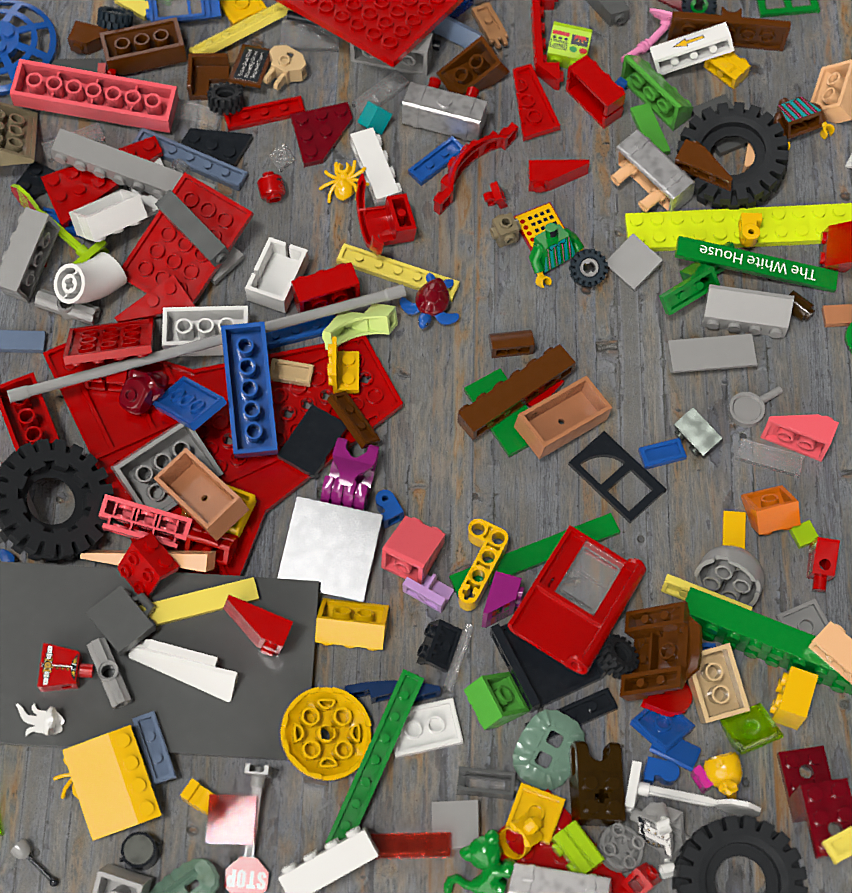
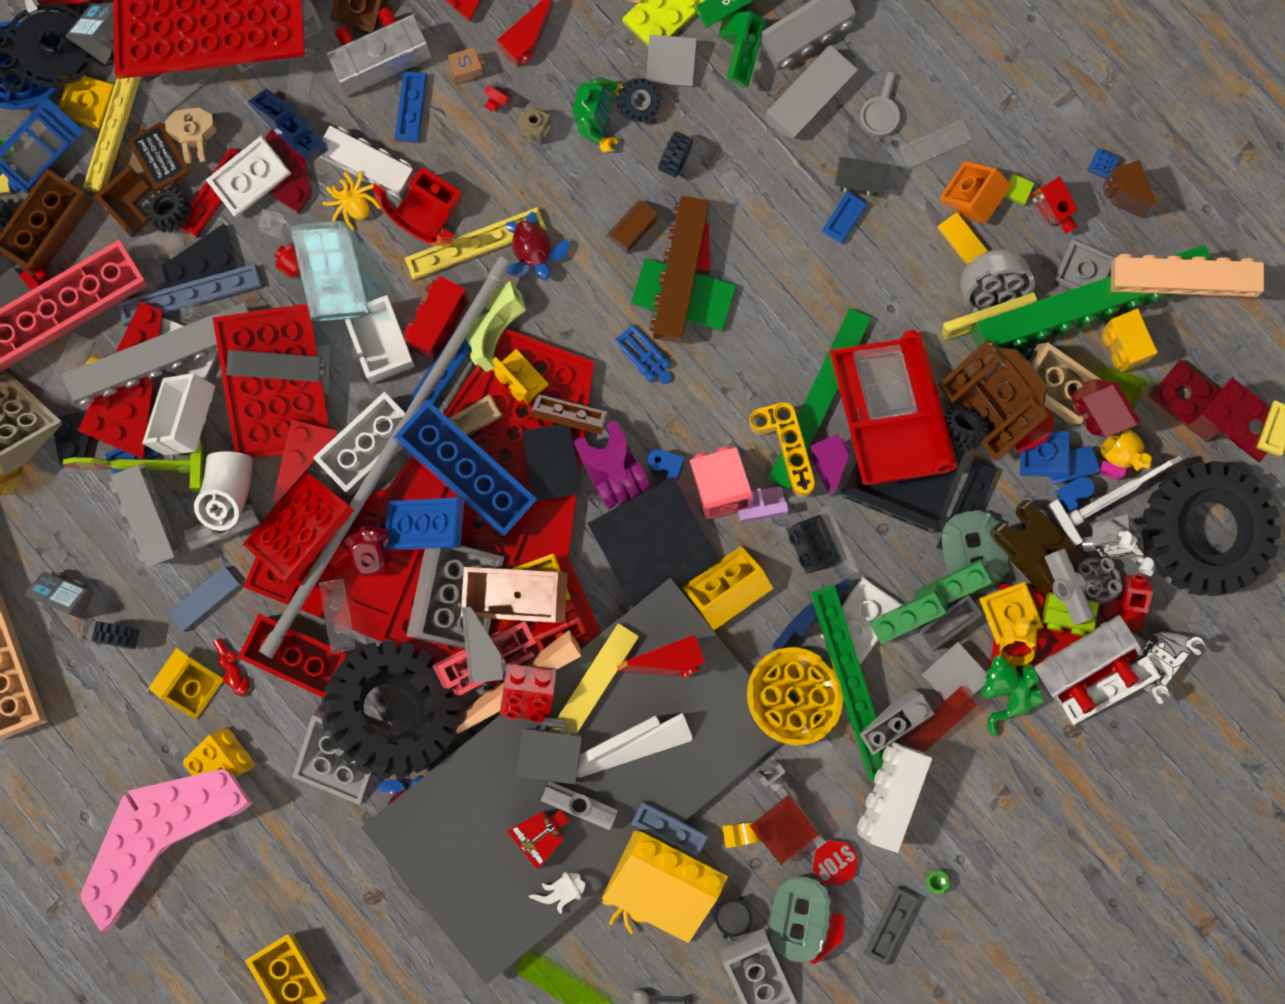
camera: 35 degrees left, 15 degrees up
(79, 416) = (337, 615): none -> clear tile
(140, 511) = (482, 656): none -> light grey slope
(285, 208) = (329, 271): none -> clear light blue piece
(293, 118) = (248, 176): none -> white tile
(347, 107) = (287, 125): none -> dark blue slope
(374, 117) = (319, 112): teal panel -> none
(379, 815) = (896, 721): none -> light grey slope
(442, 454) = (664, 376): none -> blue piece
(468, 154) = (435, 76): red piece -> none
(484, 753) = (931, 601): none -> green bracket
(495, 162) = (466, 65): none -> medium nougat brick
(496, 700) = (899, 548): bright green slope -> none
(535, 220) = (557, 93): yellow tile -> none
(576, 405) = (743, 240): nougat piece -> none
(581, 318) = (675, 154): none -> black bush
(591, 825) = (1069, 587): none -> light grey piece
(607, 447) = (794, 251): black window -> none
(730, 722) = (1104, 408): none -> dark red slope
(802, 433) = (955, 99): coral slope -> none

